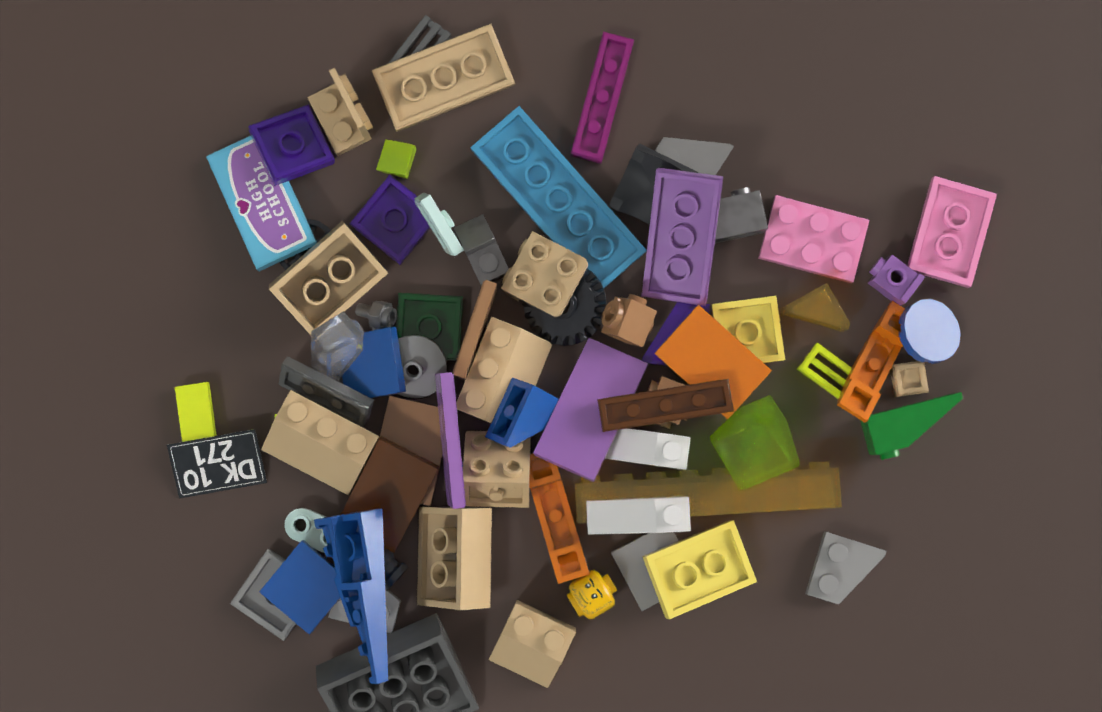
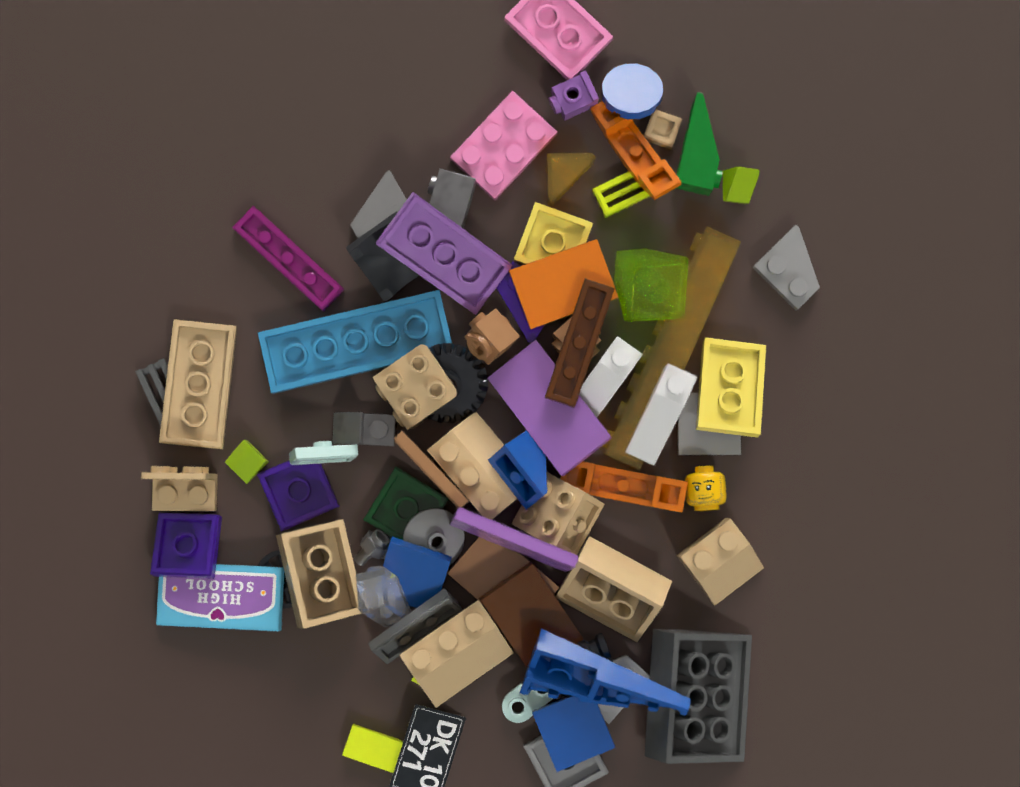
camera: 65 degrees left, 0 degrees up
(895, 477) = (739, 184): none -> lime slope

